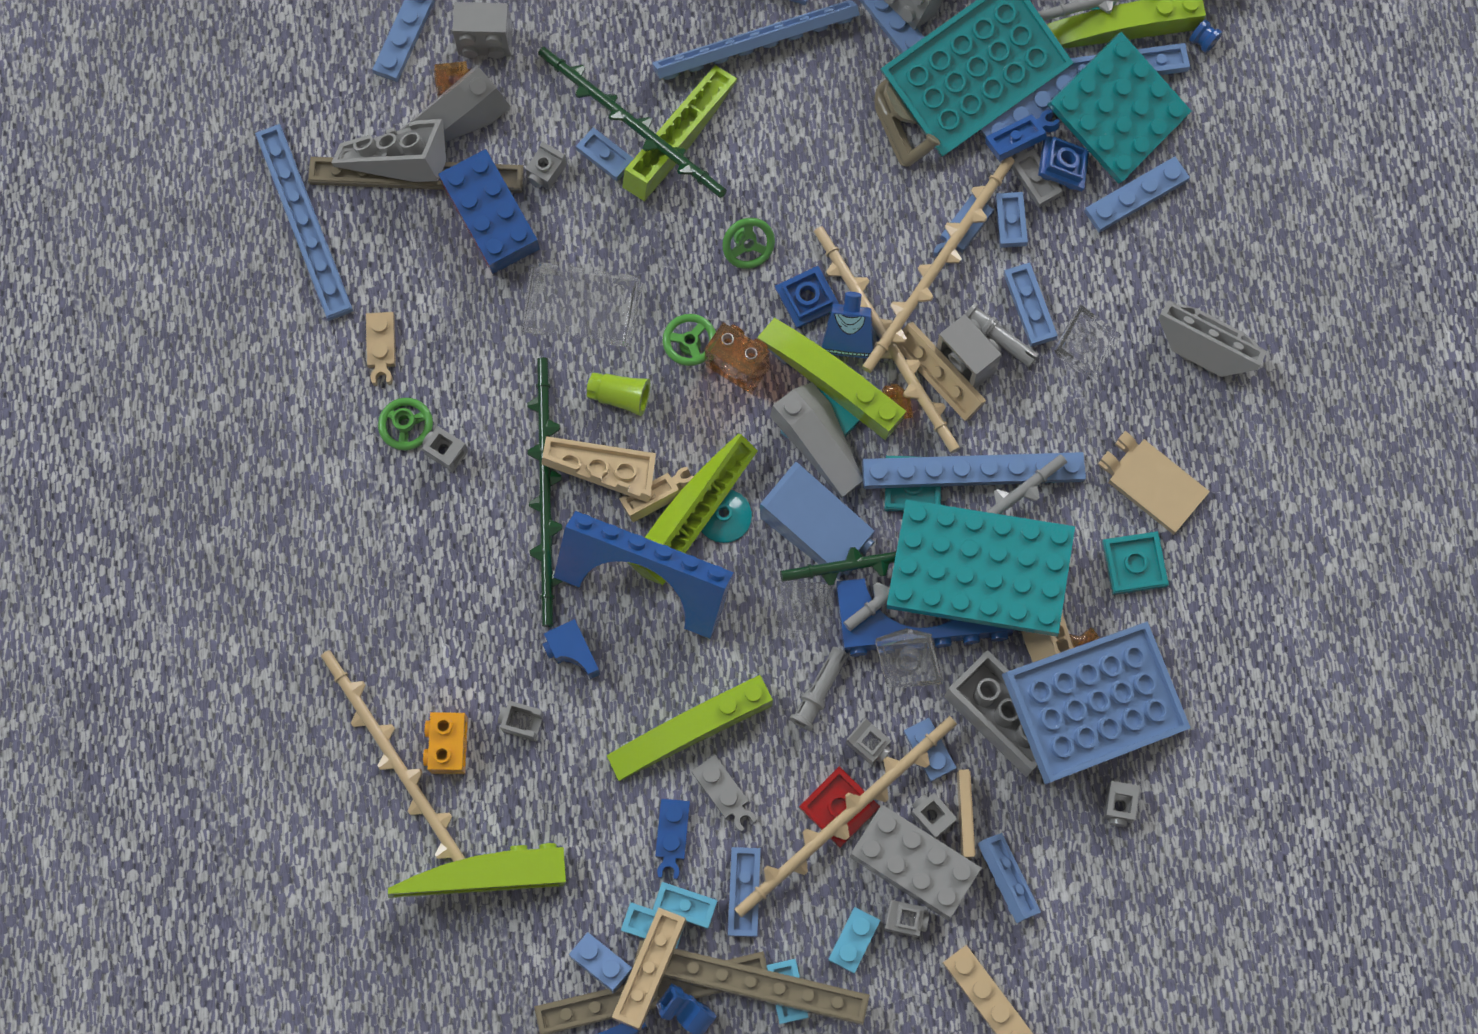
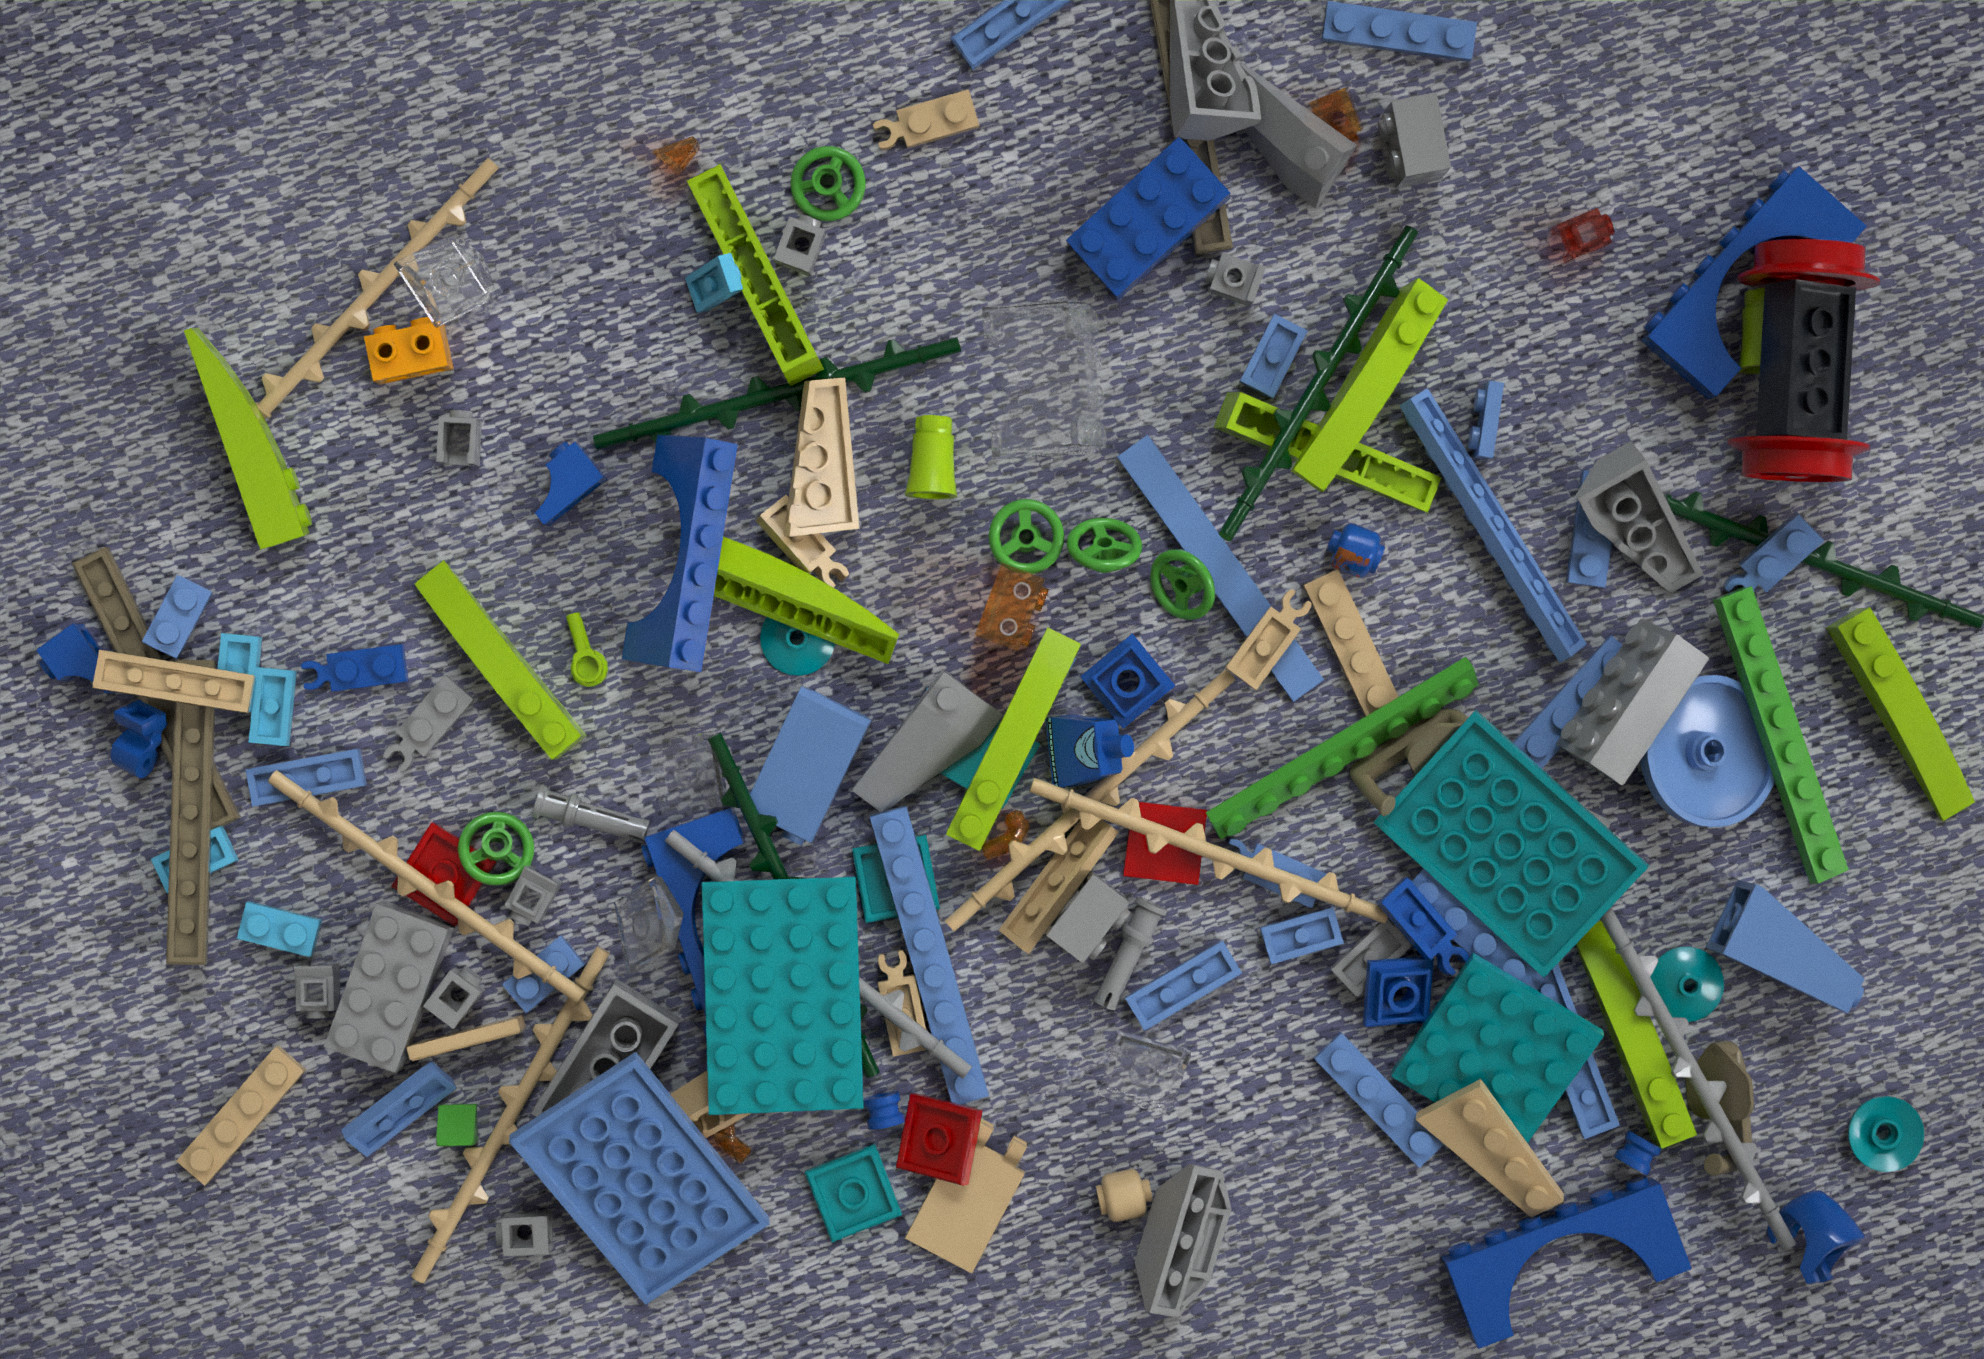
camera: 75 degrees right, 15 degrees up
(356, 521) = (678, 154): none -> clear orange slope
(400, 701) = (447, 278): none -> clear slope
(455, 510) = (714, 282): none -> medium azure plate
(459, 483) = (758, 277): none -> lime slope
(638, 88) = (1370, 382): none -> lime slope
(692, 30) = (1488, 404): none -> medium blue plate
(709, 666) = (587, 666): none -> lime plate
(713, 289) = (1105, 552): none -> bright green piece
(752, 128) = (1355, 550): none -> blue head
(770, 209) = (1200, 538): none -> medium blue tile
(801, 195) = (1267, 642): none -> tan plate
(816, 146) = (1351, 642): none -> tan plate
(819, 751) = (496, 834): none -> bright green piece
(890, 172) = (1336, 752): none -> bright green plate
(934, 312) = (1170, 862): none -> red tile
(987, 498) = (911, 1003): none -> tan plate
(1029, 838) = (457, 1125): none -> bright green slope
(1040, 803) = (515, 1098): none -> tan plant
(1082, 525) = (883, 1110): none -> blue wheel
(1107, 491) = (939, 1139): none -> red tile
(1172, 375) = (1123, 1195): none -> tan head
(1180, 126) = (1489, 1142): none -> tan wing
(1271, 148) = (1487, 1270): none -> blue arch

